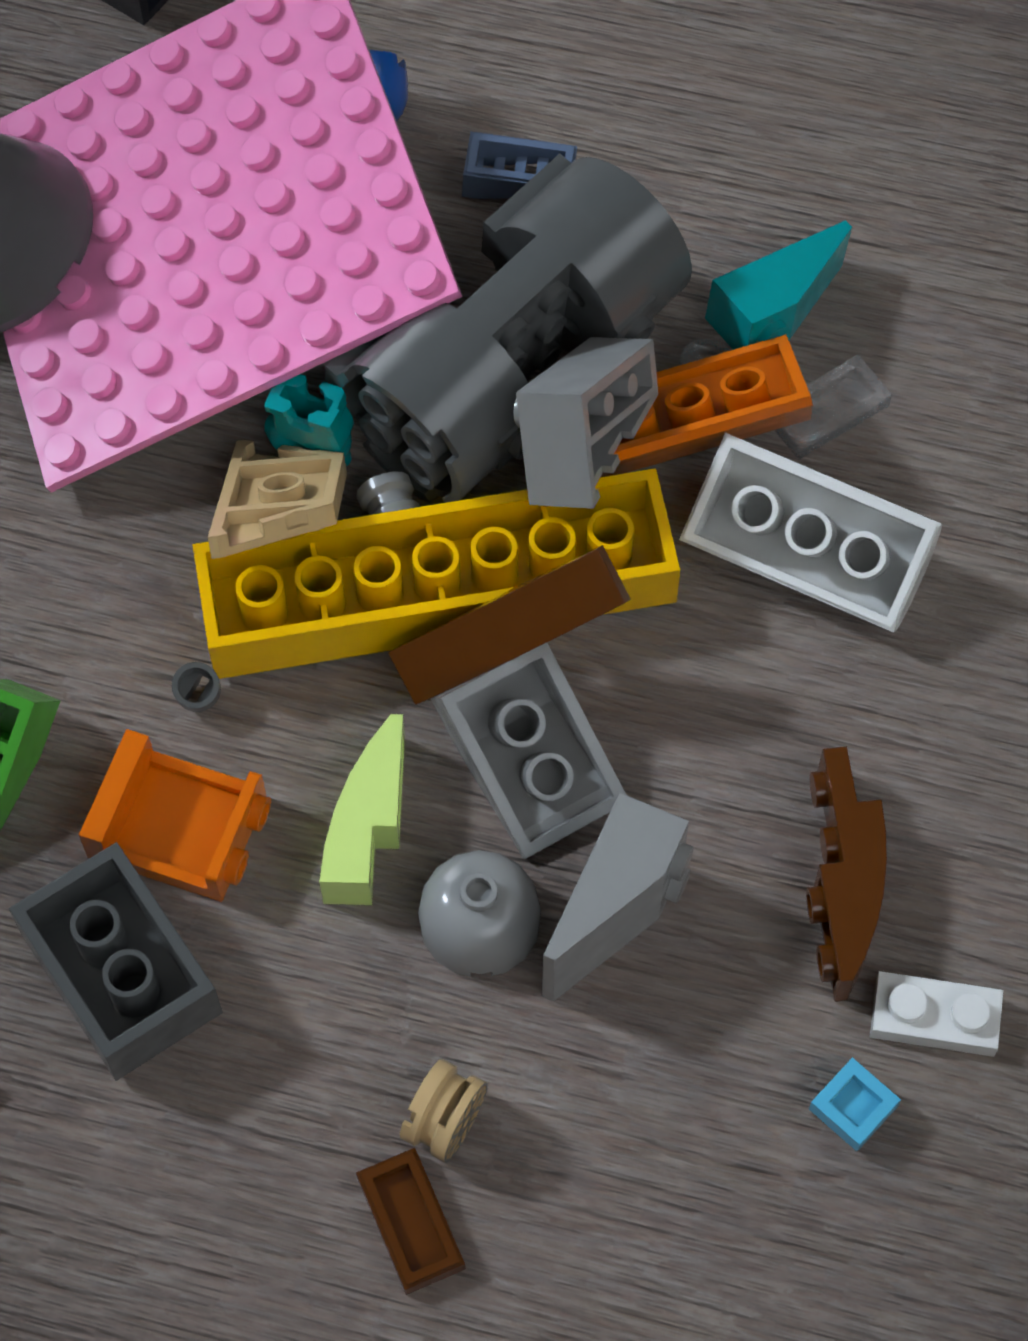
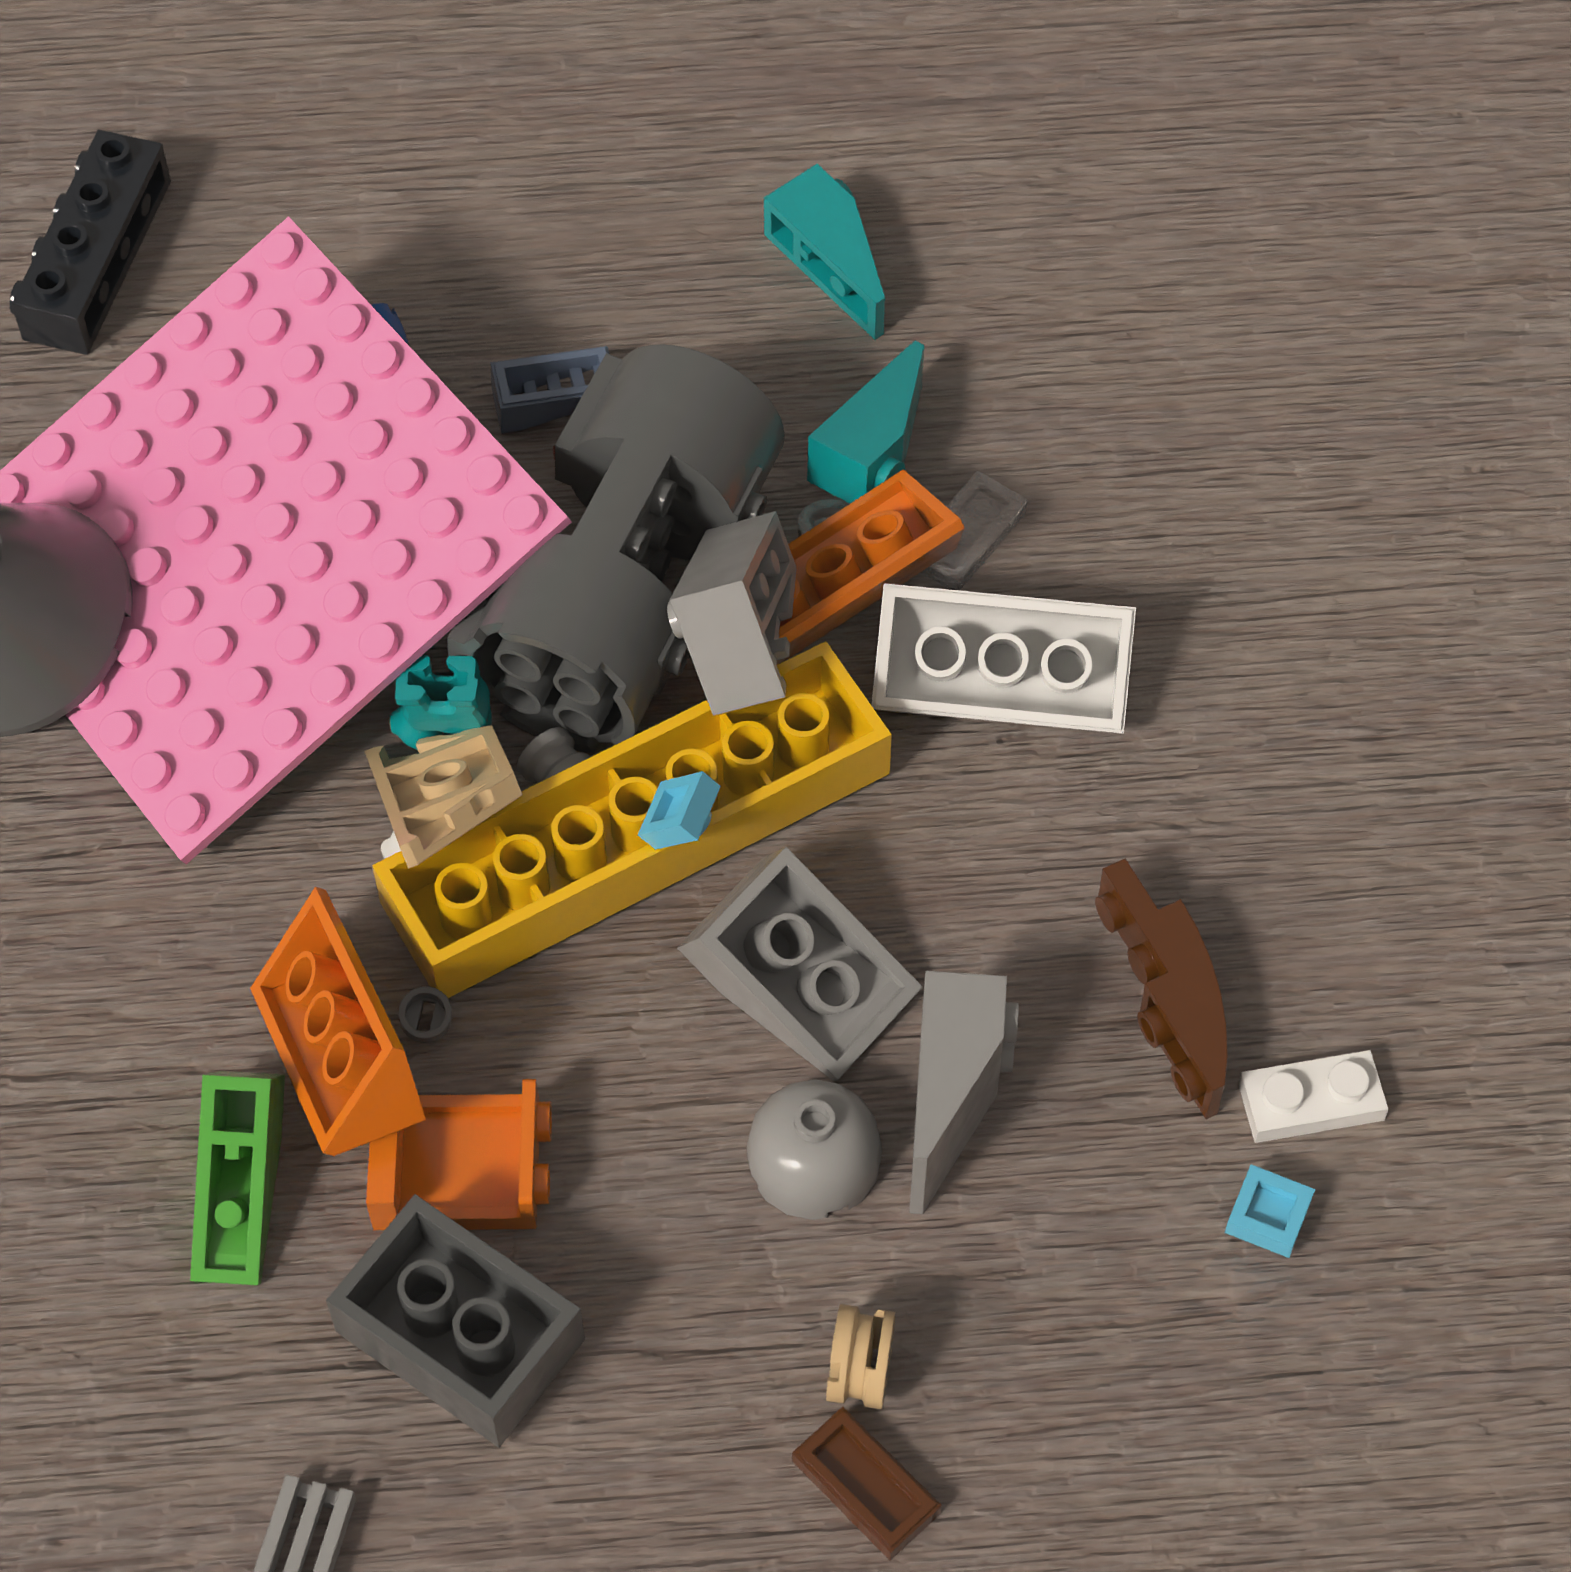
camera: 20 degrees left, 5 degrees down
(108, 681) = (335, 1033): none -> orange slope
(365, 818) = (661, 1091): yellowish green slope -> none
(464, 581) = (679, 810): none -> medium azure plate
(510, 625) = (741, 843): reddish brown slope -> none
(804, 95) = (823, 235): none -> teal slope

